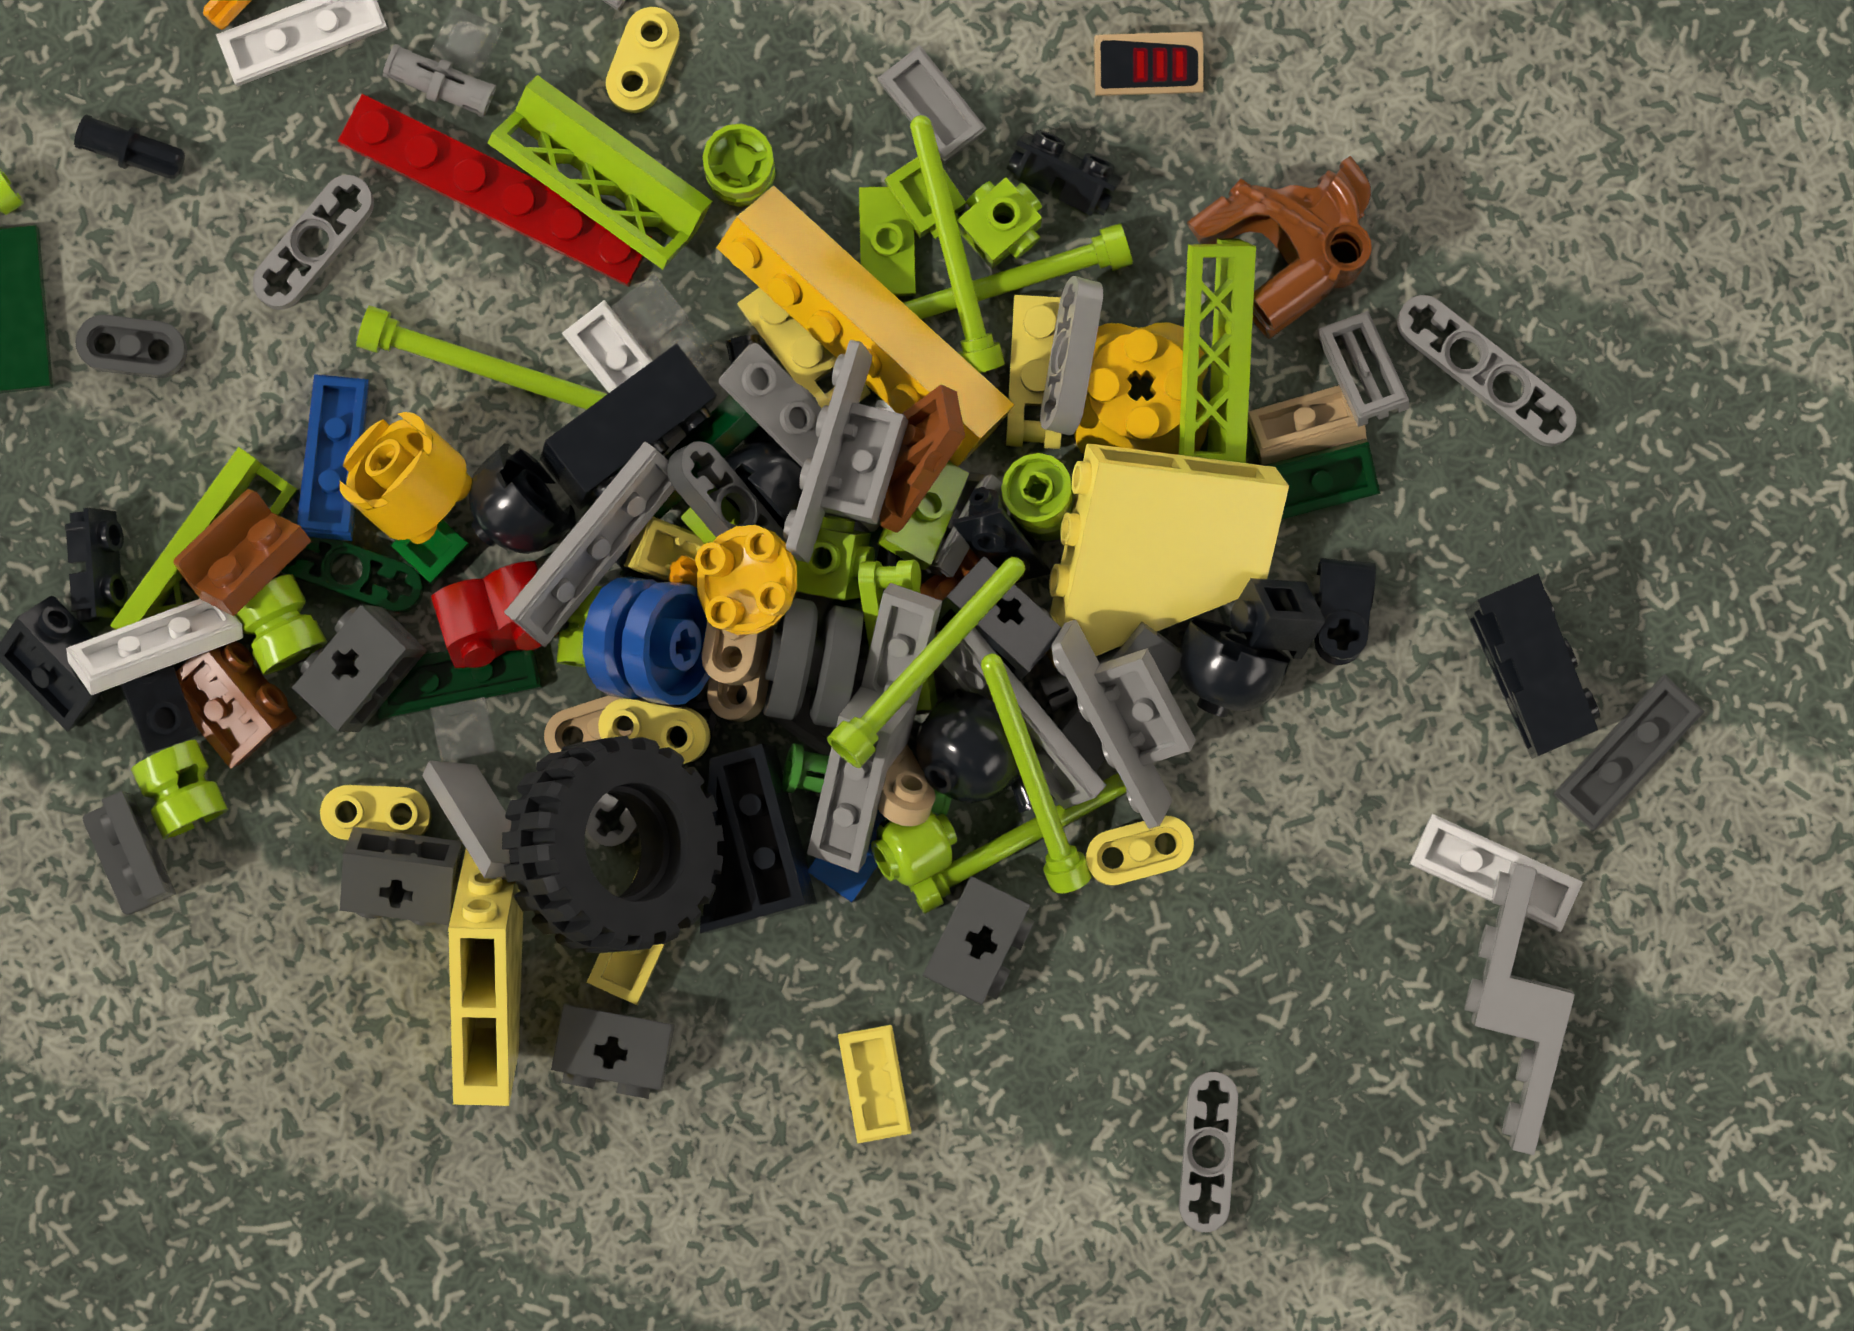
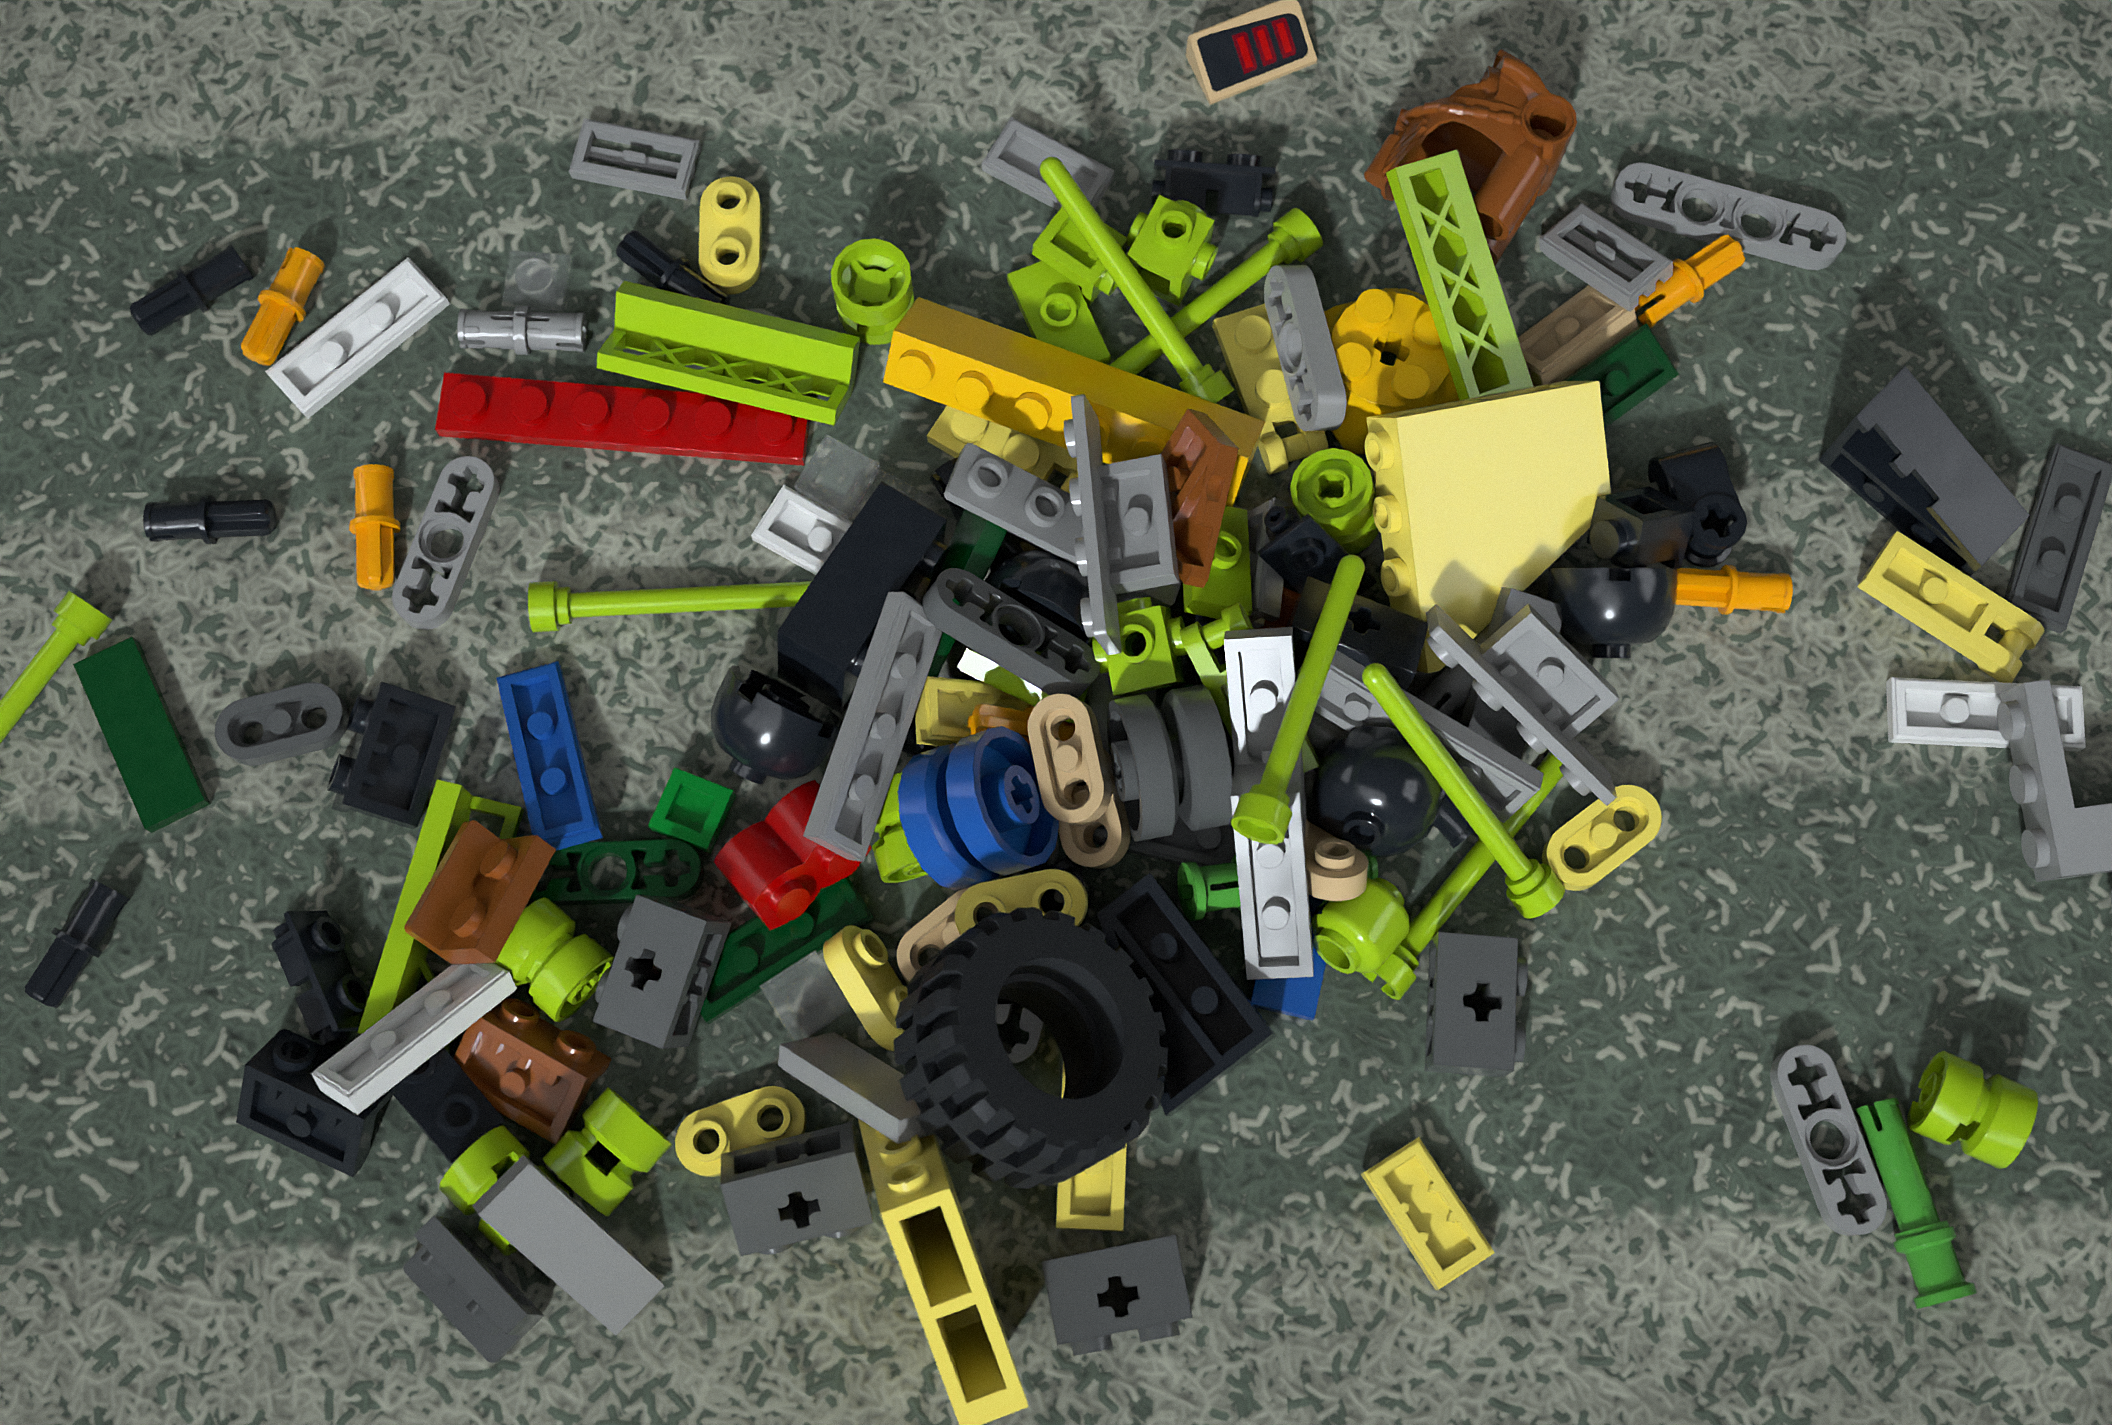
camera: 20 degrees left, 10 degrees down
(208, 406) = (391, 754): none -> black bracket
(214, 852) = (568, 1244): none -> light grey tile
(260, 207) = (374, 526): none -> light orange axle
(281, 774) = (621, 1132): none -> lime wheel
(404, 477) = (636, 741): yellow brick -> none
(515, 736) = (867, 980): none -> light yellow plate
(577, 78) = (666, 271): none -> black axle
(745, 579) = (1061, 694): yellow dish -> none
(1245, 1251) = (1922, 1235): none -> bright green pin
(1326, 1173) = (1985, 1115): none -> lime wheel
(1335, 691) = (1734, 589): none -> light orange axle
(1429, 414) = (1692, 278): none -> light orange axle
(1508, 775) = (1951, 606): none -> light yellow plate

